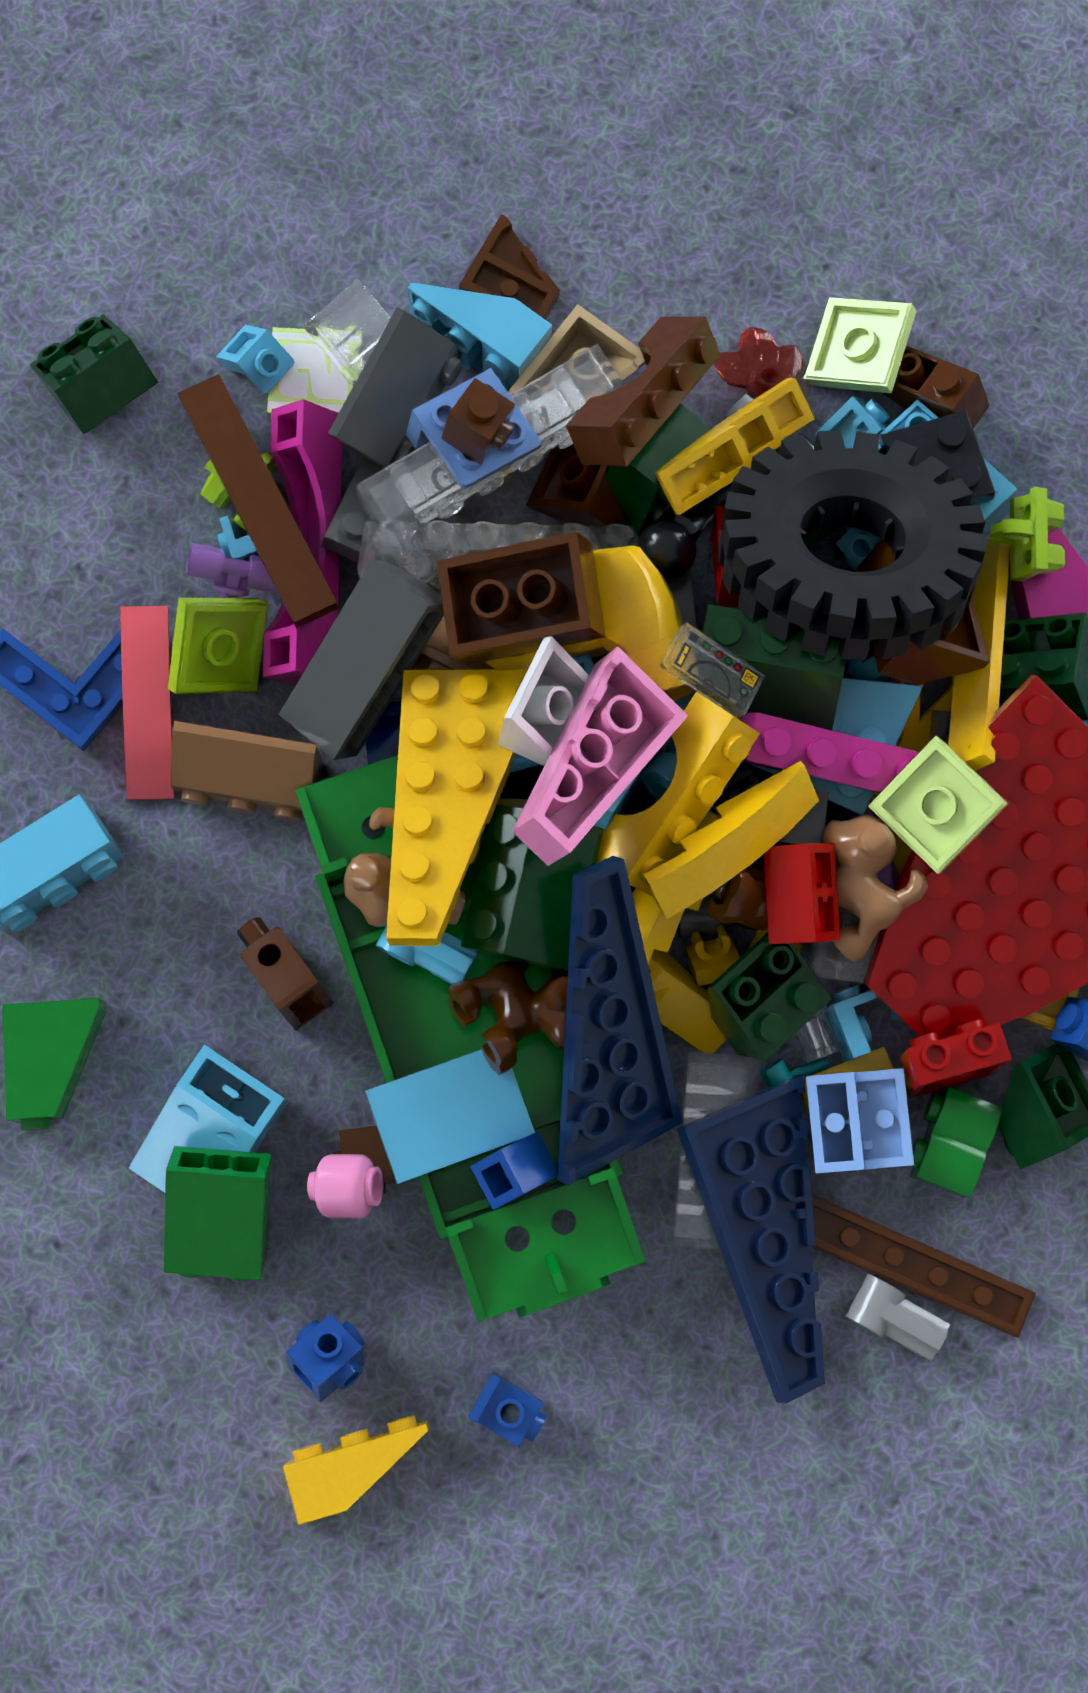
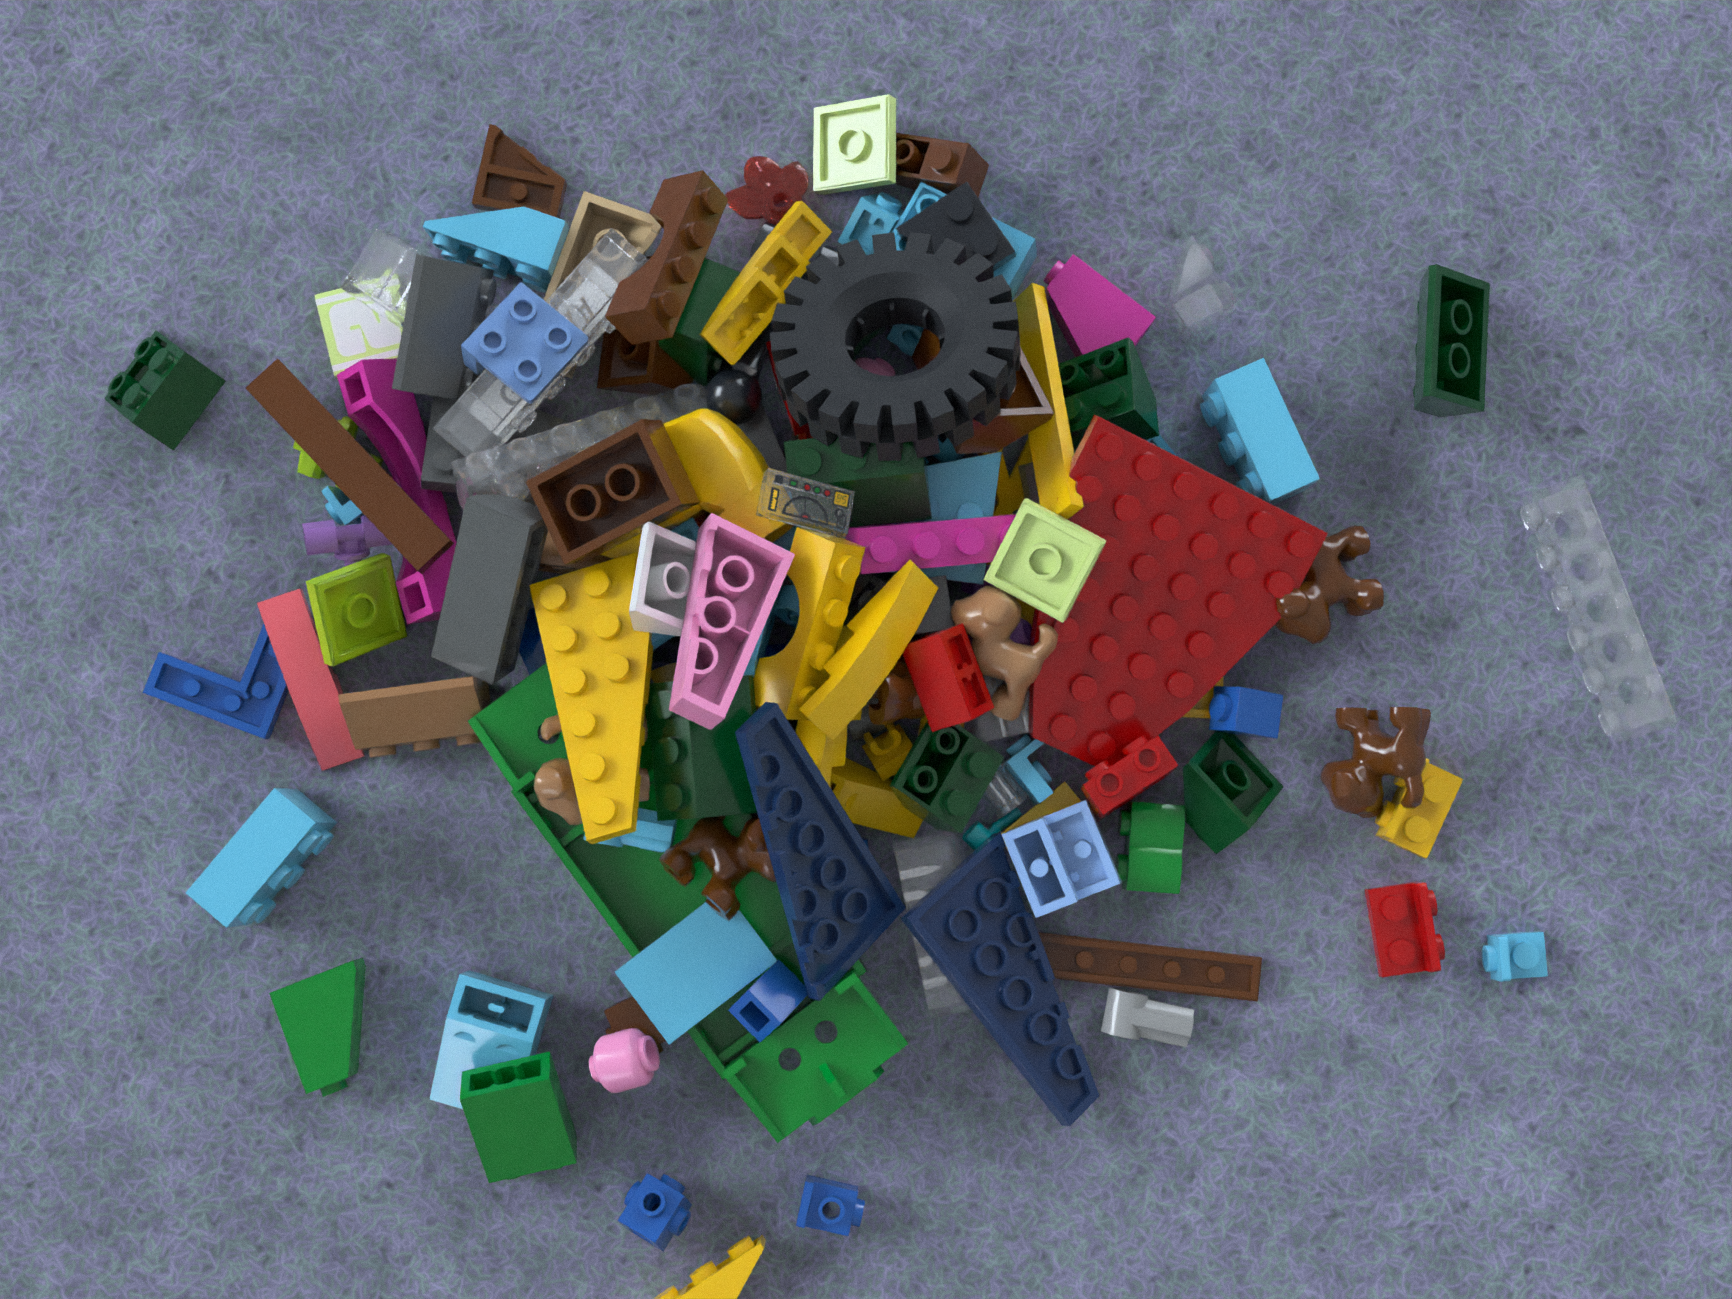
camera: 10 degrees left, 5 degrees up
(257, 356) = (308, 329): medium azure bracket -> none
(282, 973) = (510, 886): reddish brown torso -> none
(479, 422) = (524, 341): reddish brown brick -> none
(1031, 518) = (1056, 280): lime hips -> none

